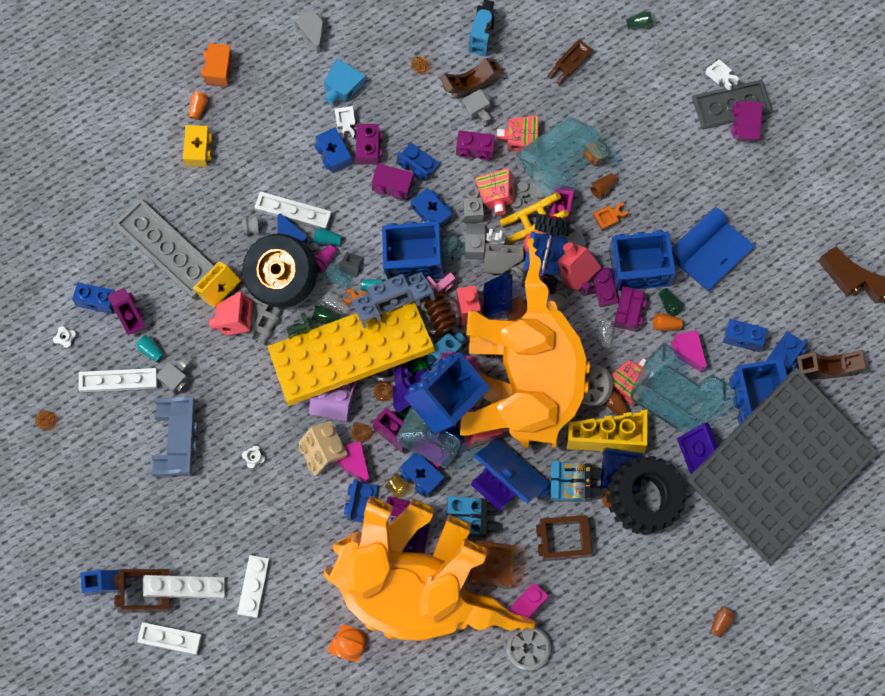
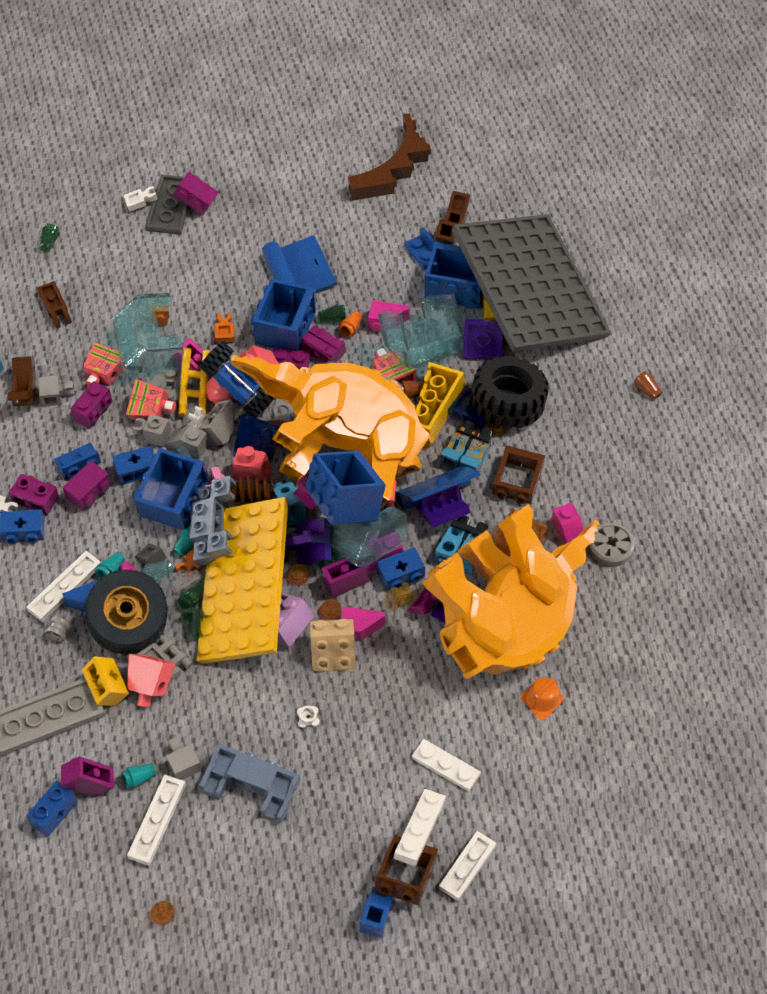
camera: 65 degrees left, 15 degrees down
(58, 339) = (77, 853): white plate -> none
(359, 495) = (402, 633): blue bracket -> none
(603, 185) = (192, 323): dark orange cone -> none
(744, 335) = (393, 271): blue brick -> none

